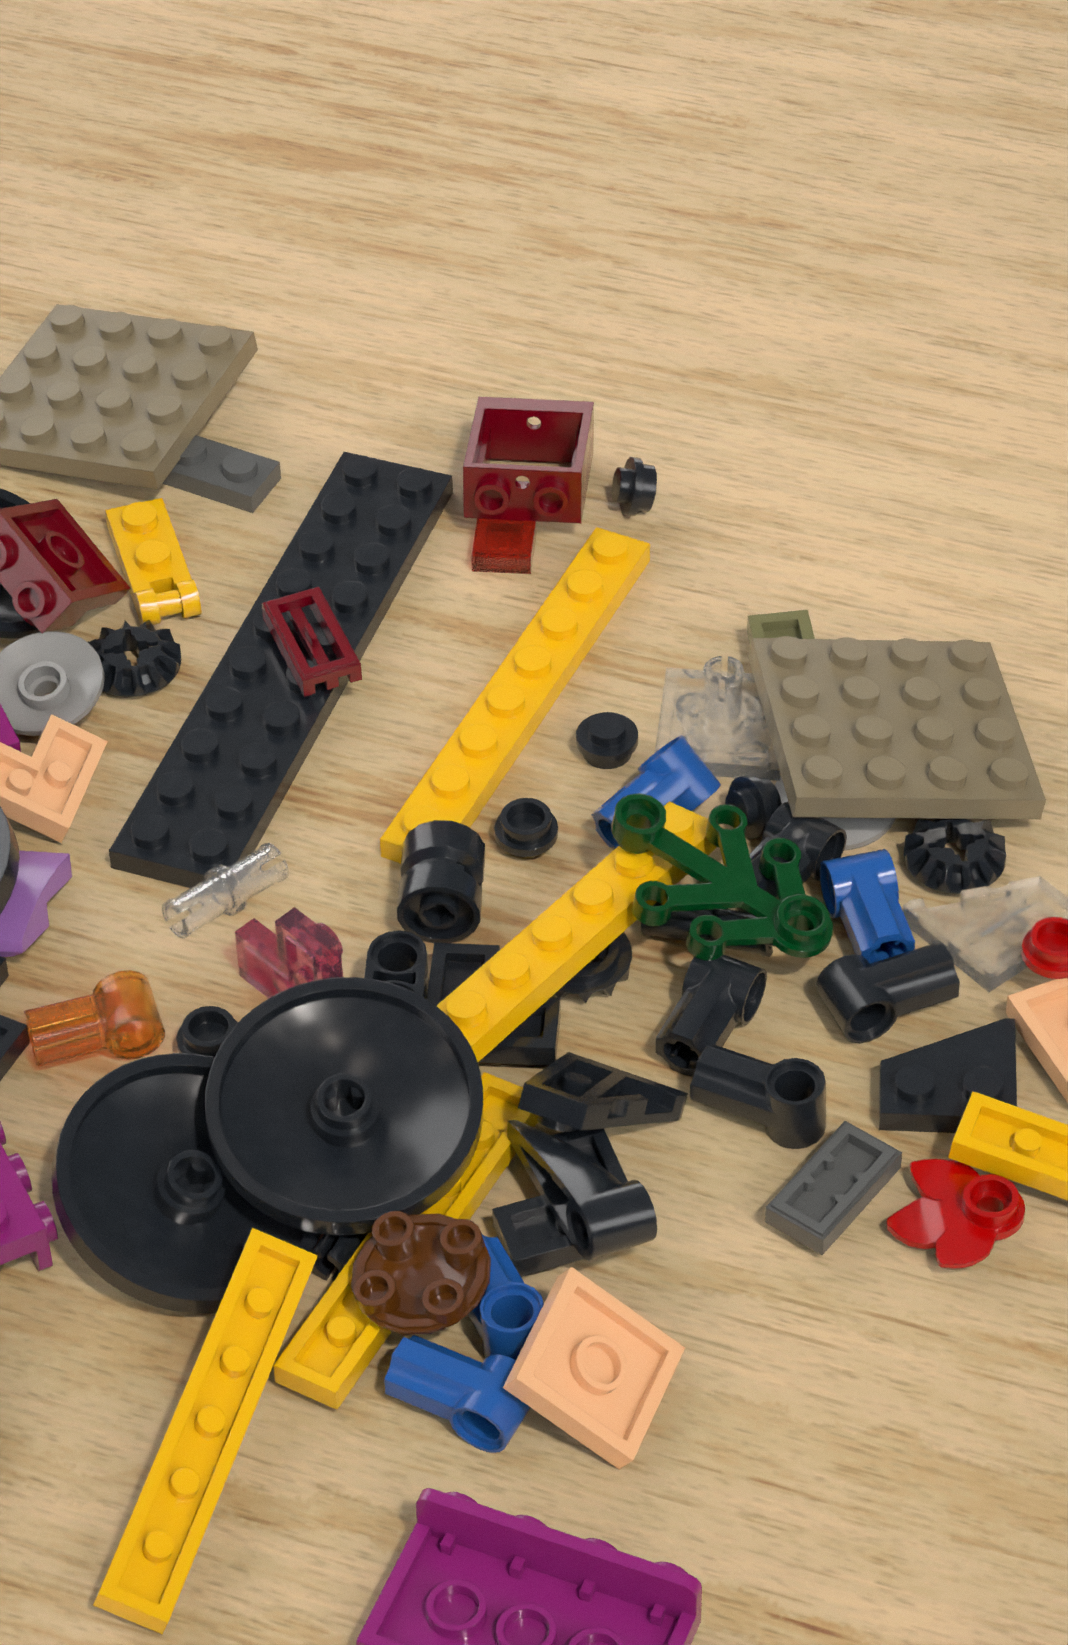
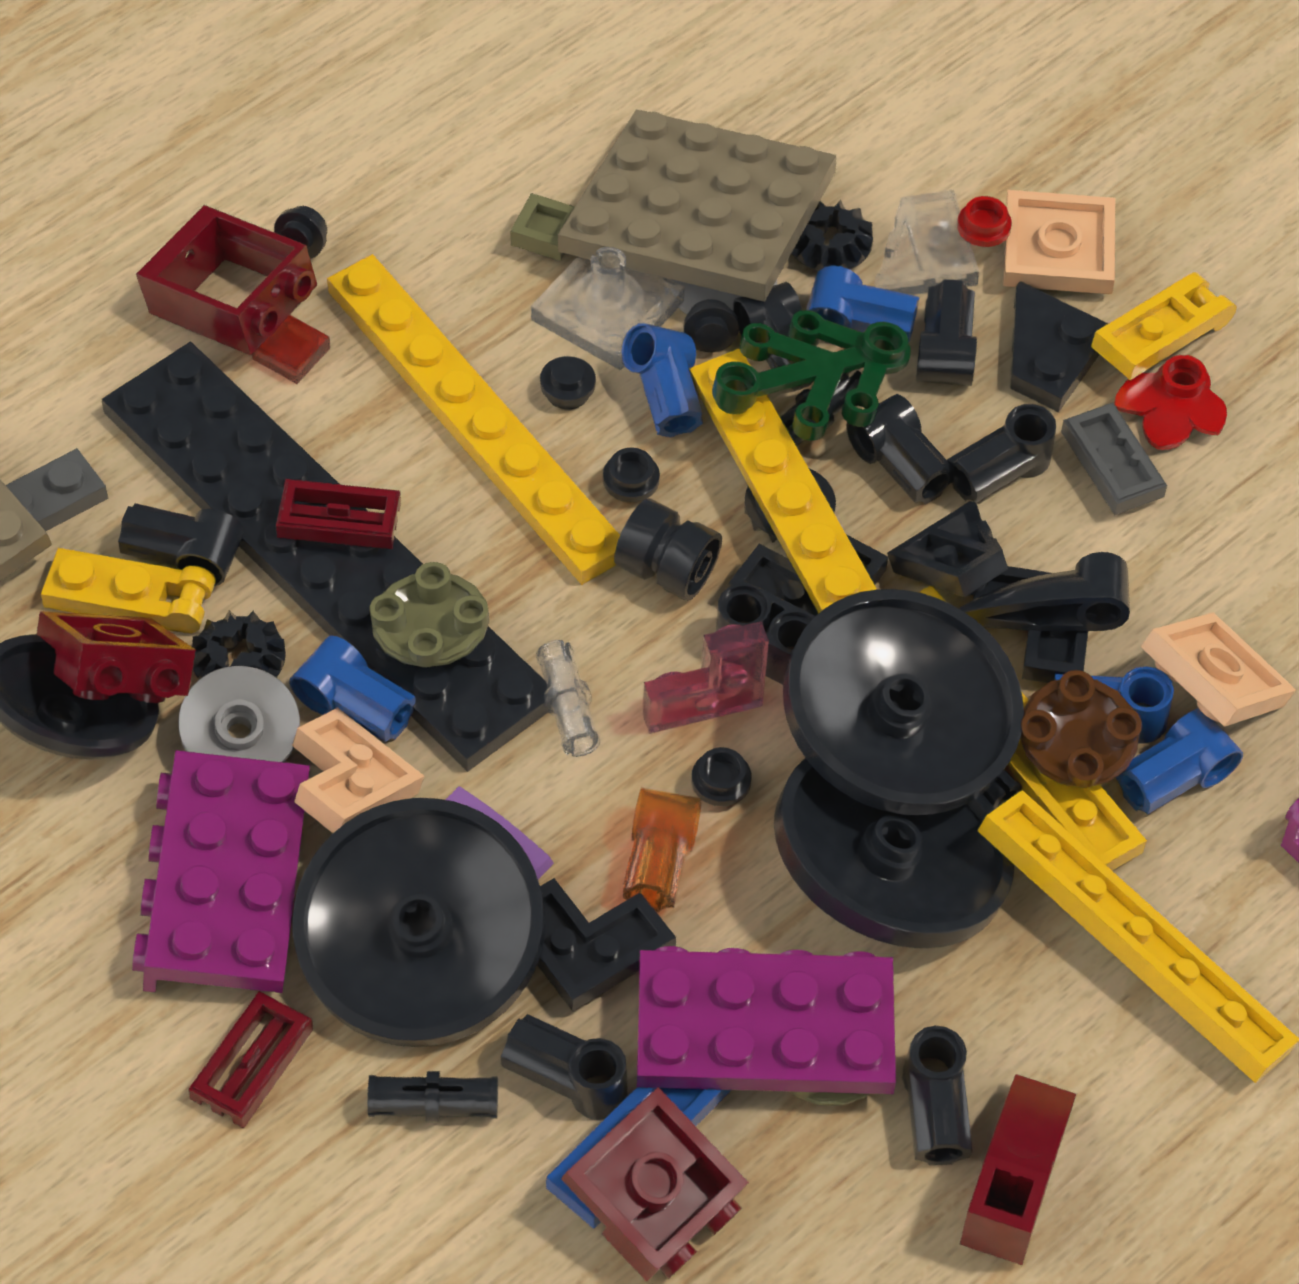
camera: 65 degrees left, 10 degrees up
(134, 734) = (341, 679): none -> blue piece
(222, 569) = (181, 539): none -> black piece
(229, 743) = (429, 617): none -> olive dish

